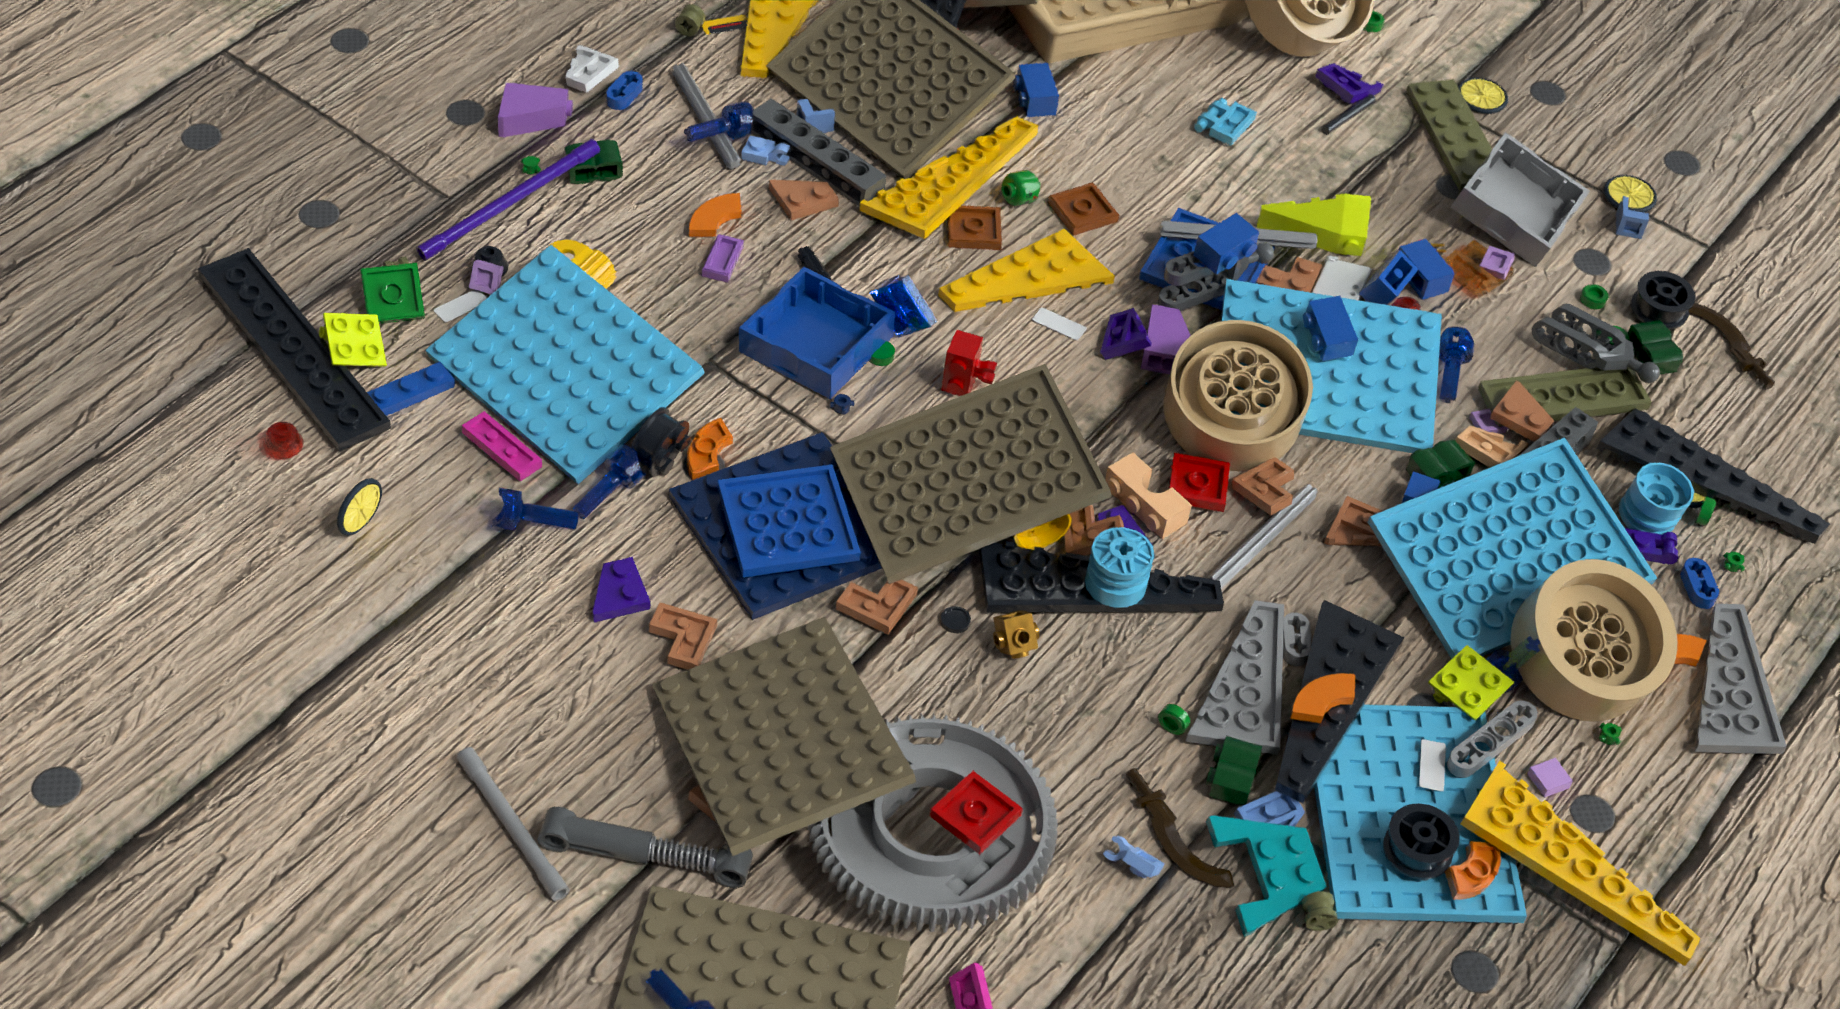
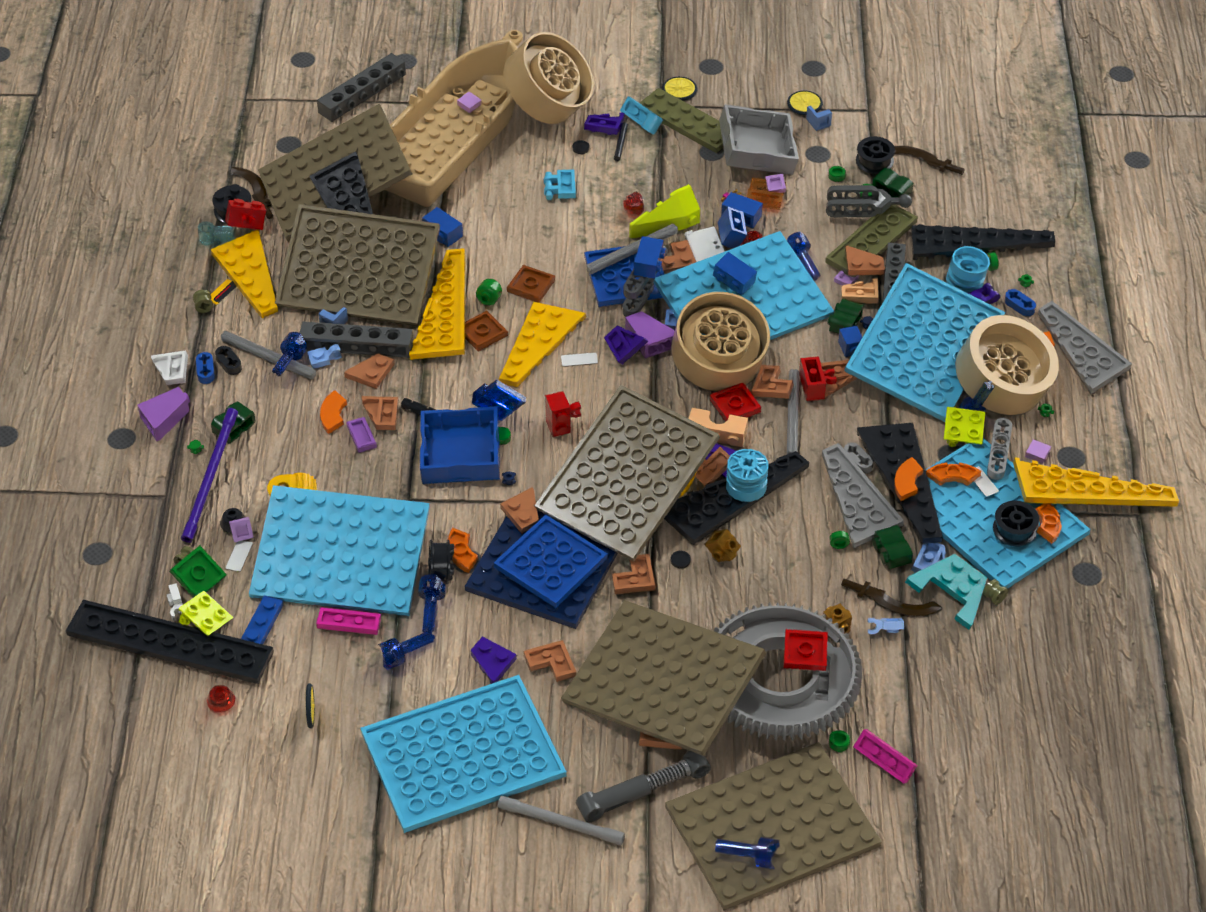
camera: 30 degrees left, 0 degrees up
(343, 303) = (175, 600): none -> white plate
(478, 672) = (462, 753): none -> medium azure plate
(660, 97) = (225, 362): none -> black beam
(769, 246) = (381, 411): none -> nougat wing
(813, 443) = (521, 510): none -> nougat wing
(939, 958) = (839, 741): none -> green tile
(1074, 811) = (839, 615): none -> pearl gold brick
(1293, 95) = (580, 147): none -> black piece
(1293, 187) = (634, 203): none -> clear red cone
(1325, 510) = (814, 378): none -> red brick
(1400, 97) = (641, 115): none -> medium azure plate
(1405, 733) = (959, 472): none -> orange tile

